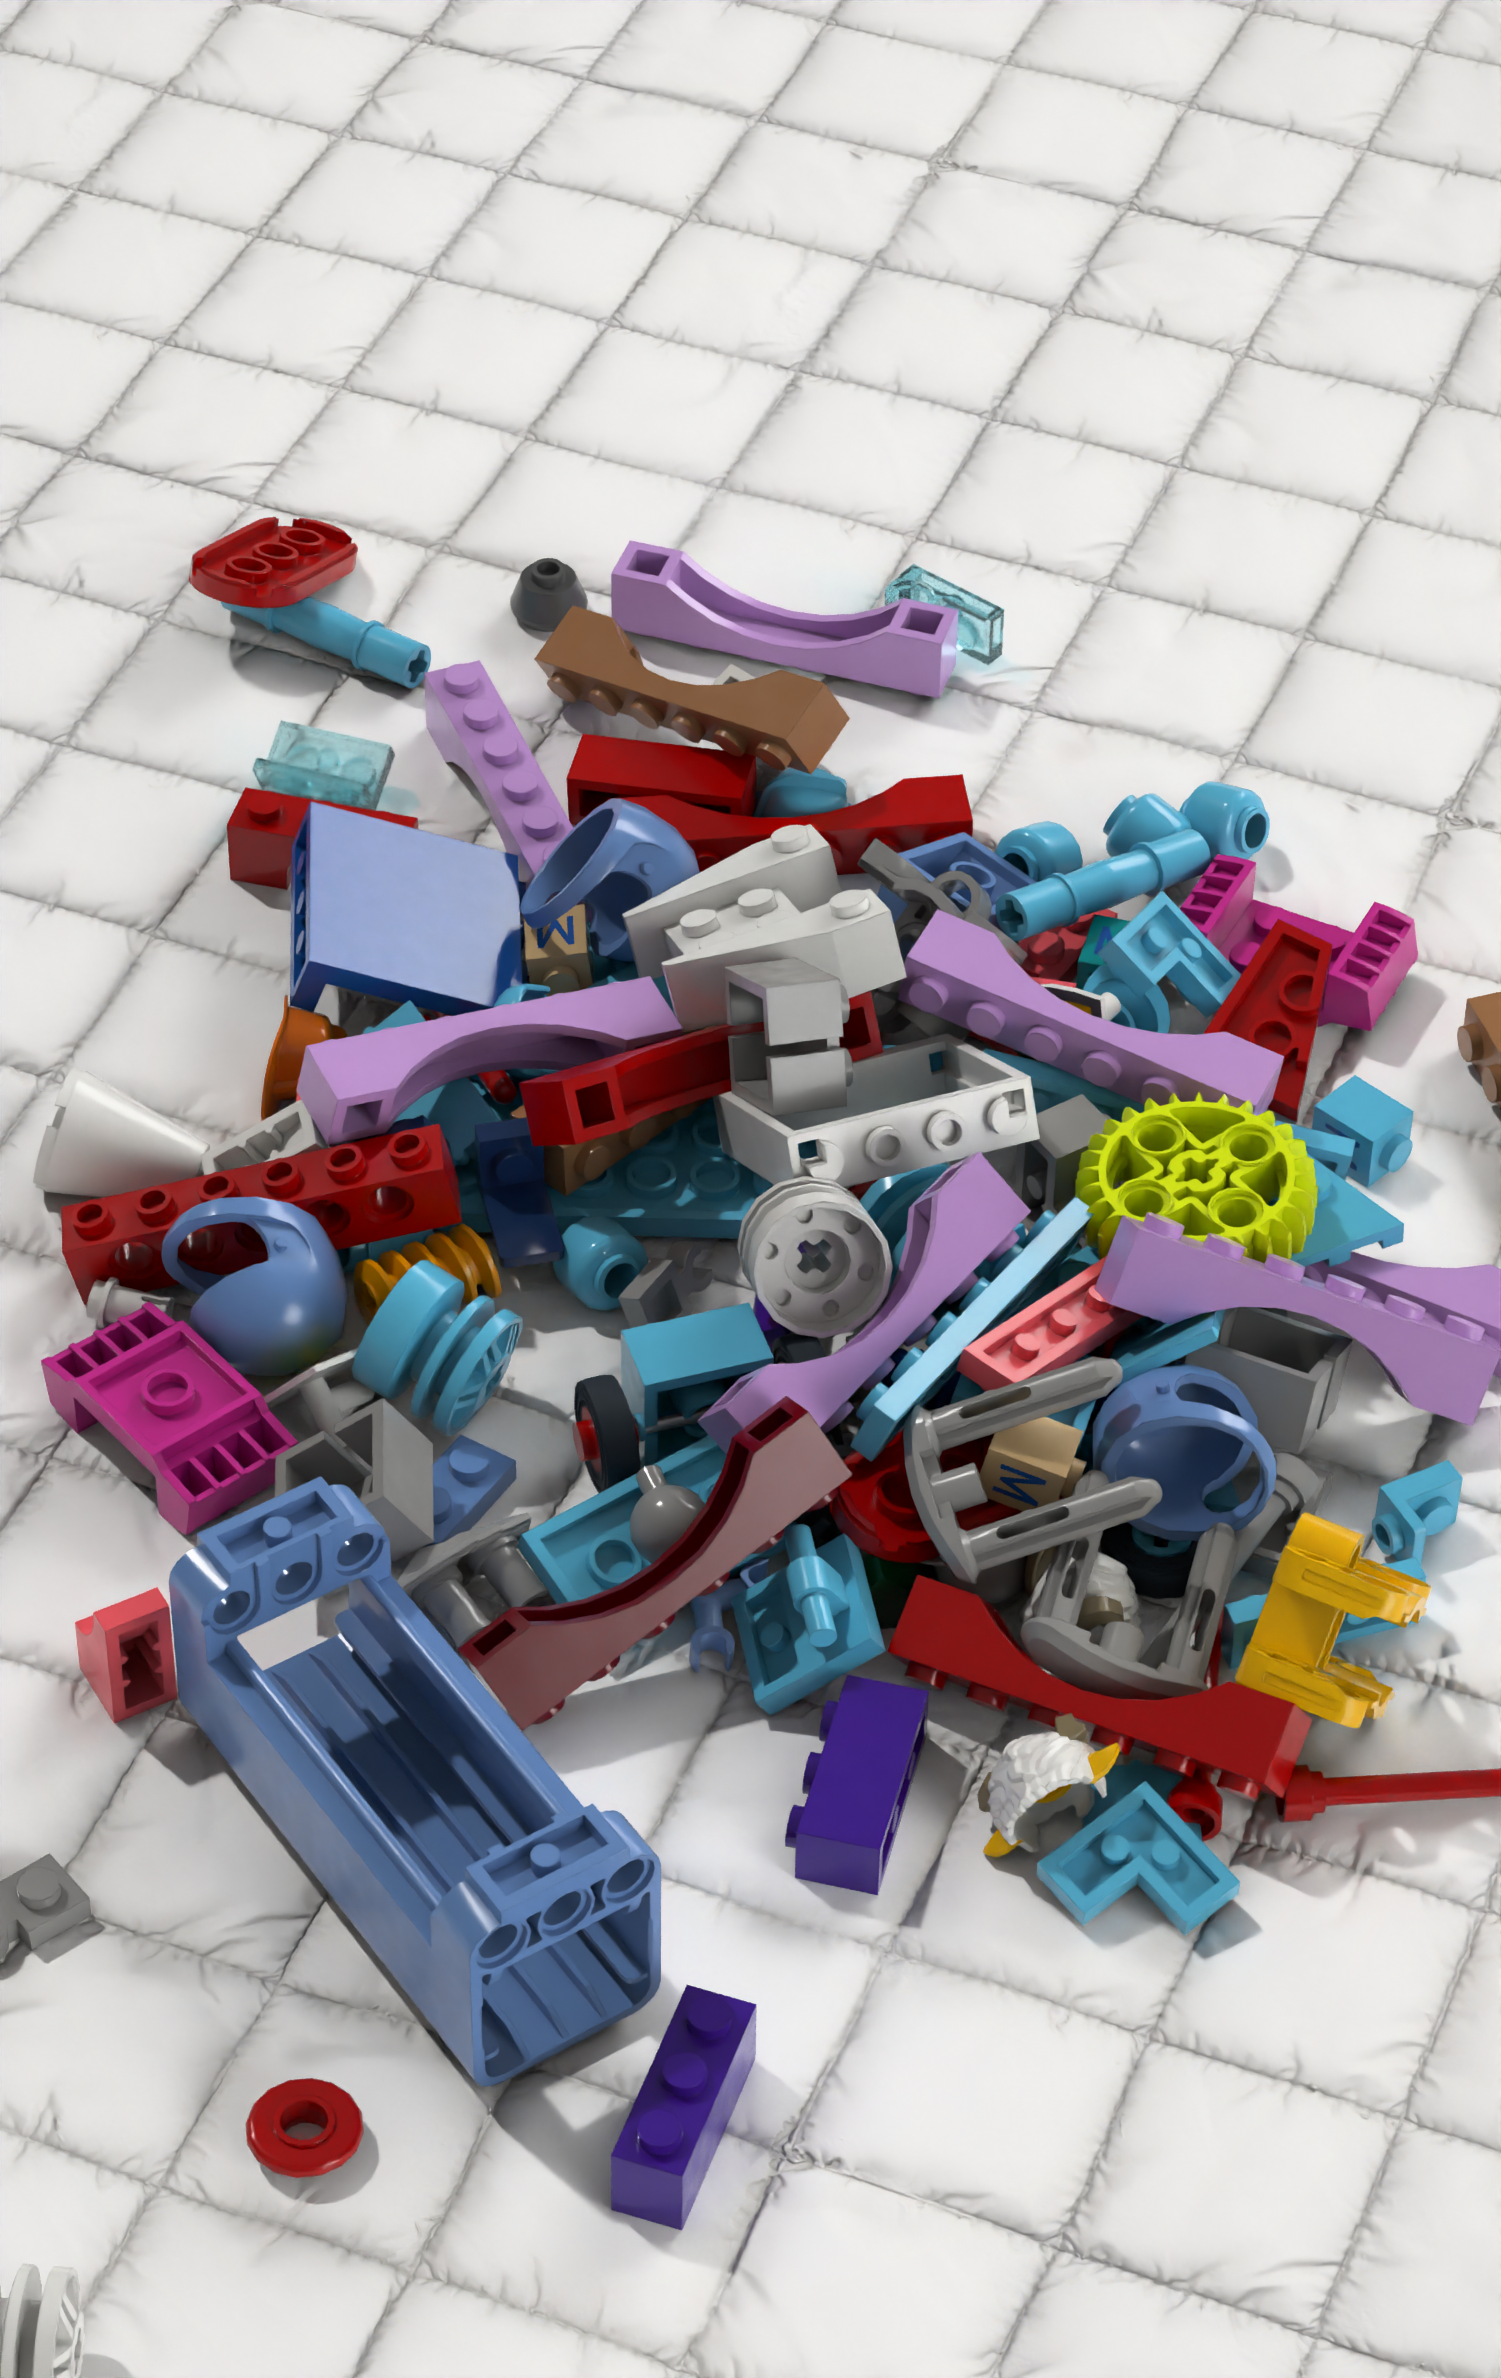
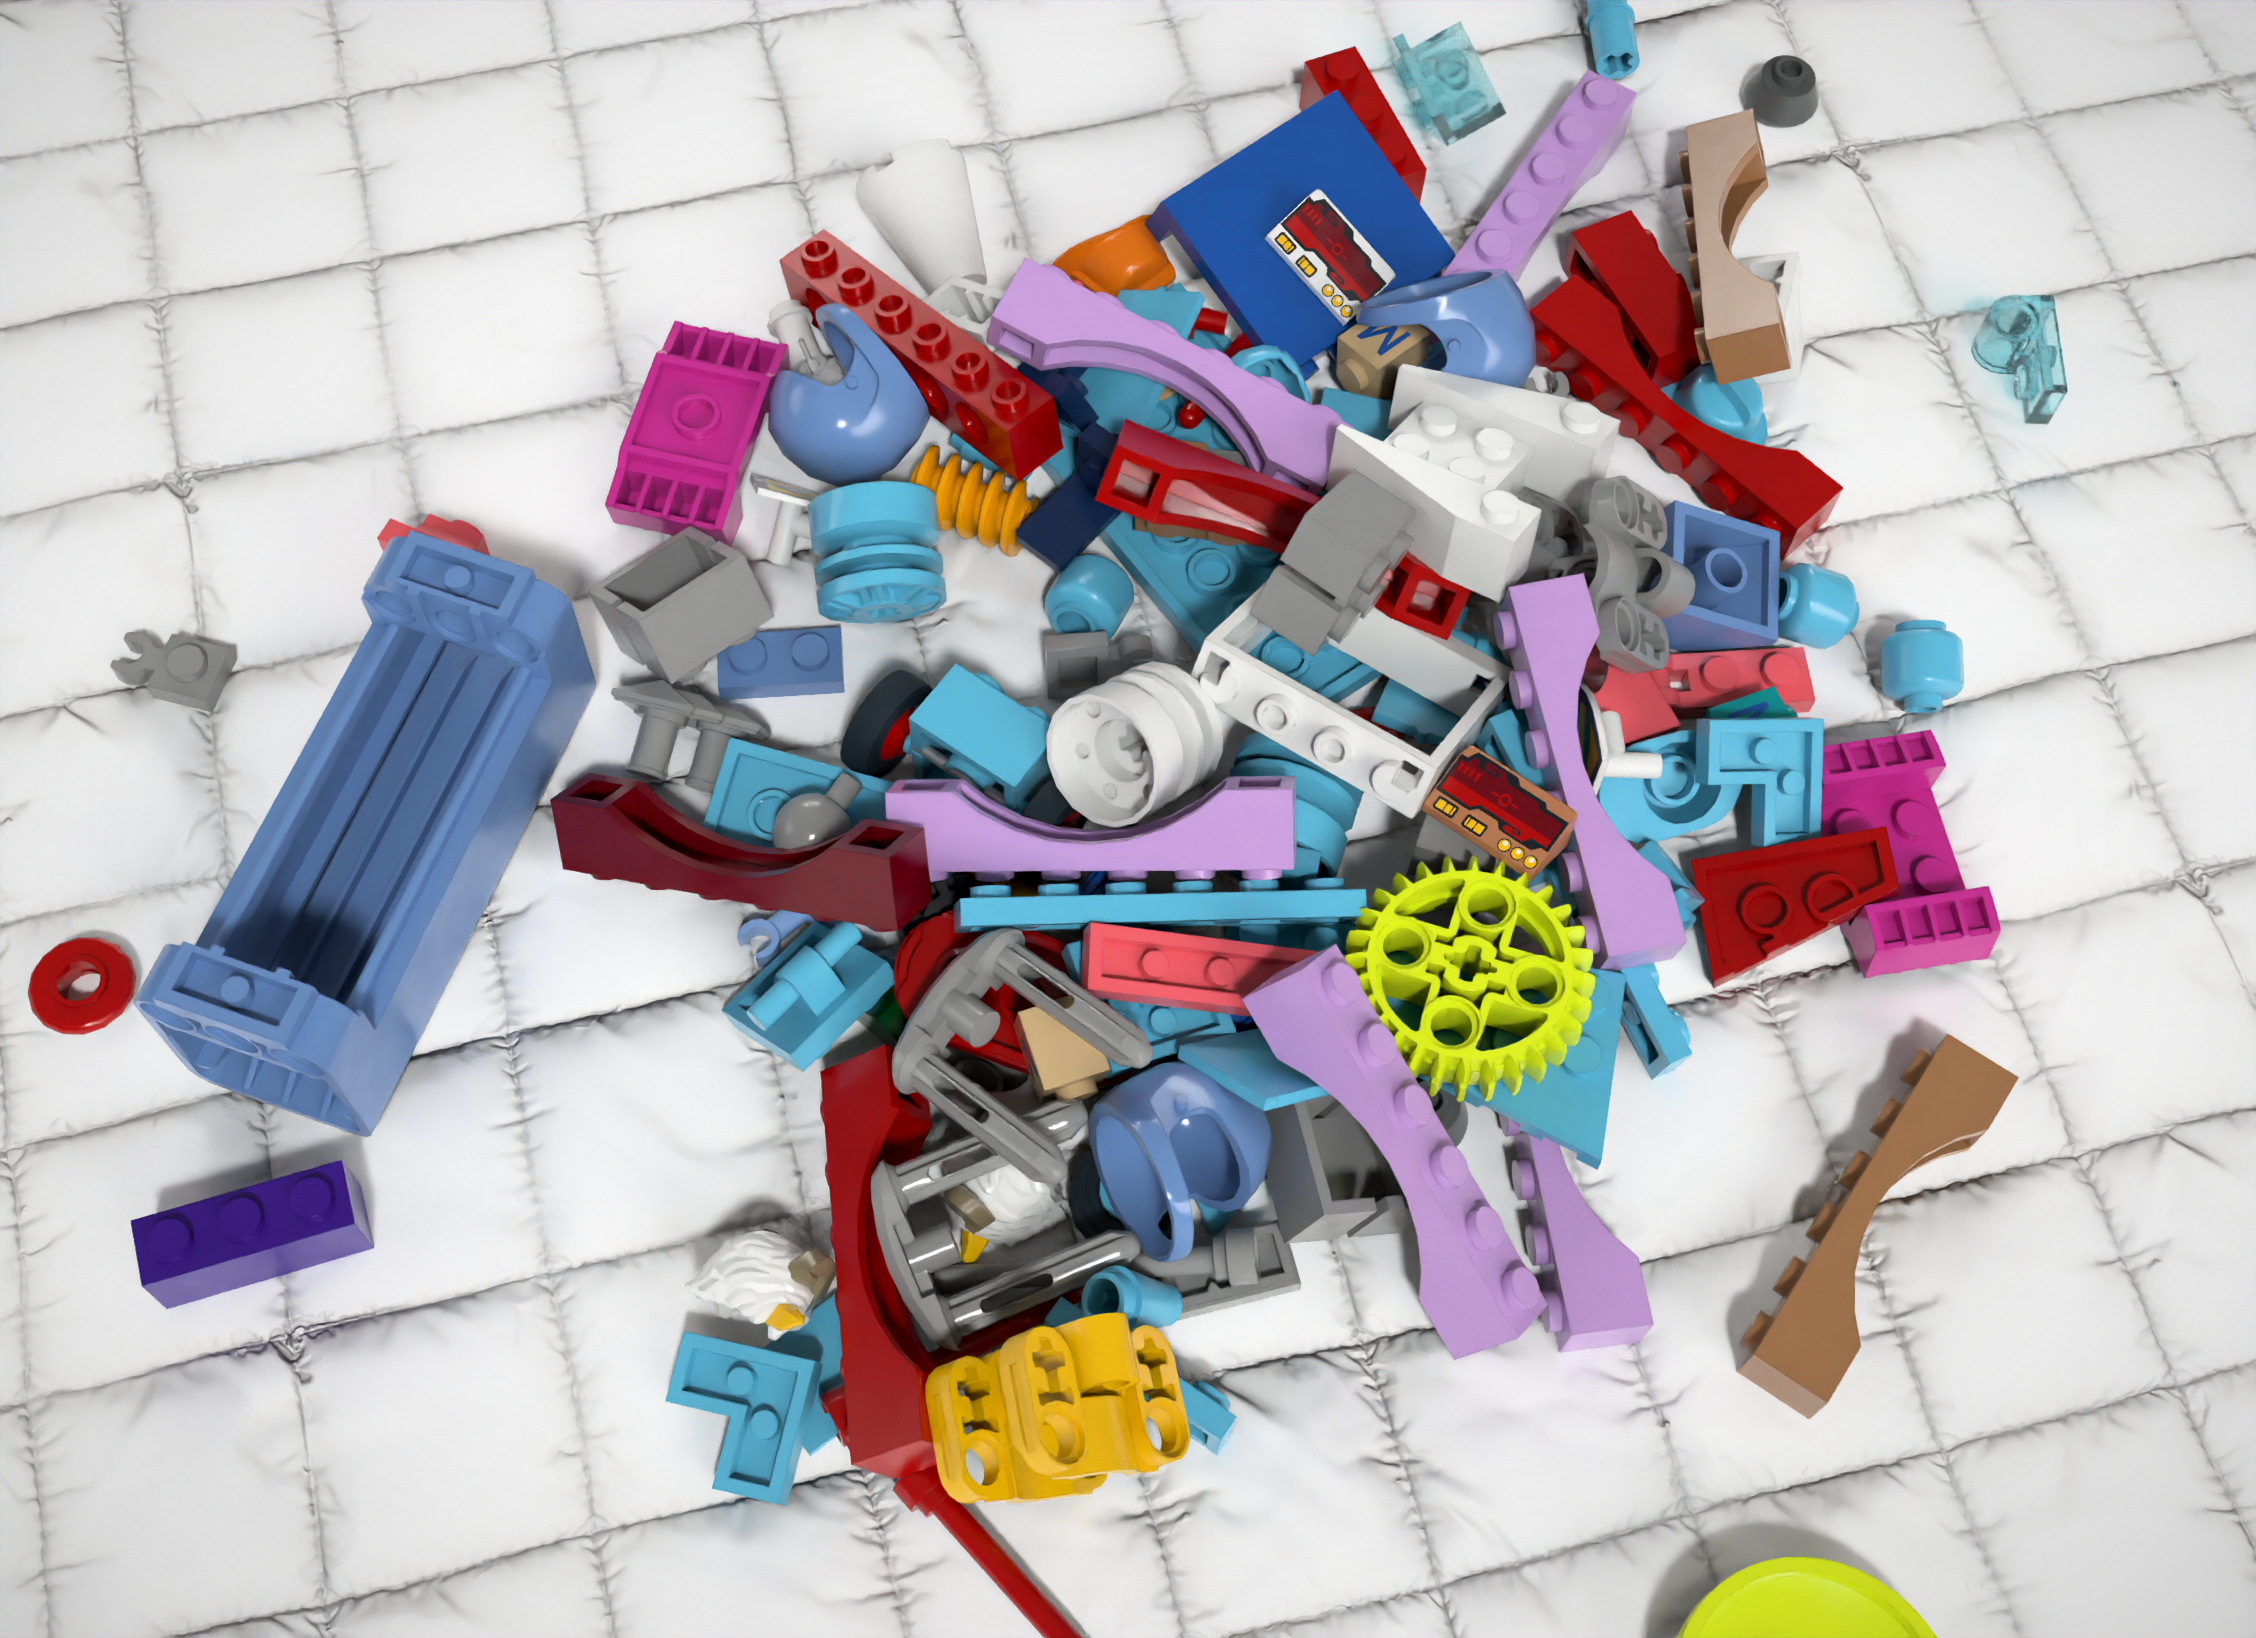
camera: 50 degrees right, 20 degrees up
(457, 906) = (1330, 256): none -> slope
(675, 599) = (1948, 338): lavender arch -> none
(858, 1784) = (682, 1141): dark purple brick -> none
(1089, 1082) = (1501, 812): none -> slope
(1102, 884) = (1808, 670): medium azure piece -> none
(1228, 819) = (1995, 709): medium azure head -> none
(1251, 1555) = (1132, 1293): none -> medium azure cone
(1371, 1119) = (1729, 1049): medium azure brick -> none
(1416, 1508) = (1326, 1377): medium azure bracket -> none

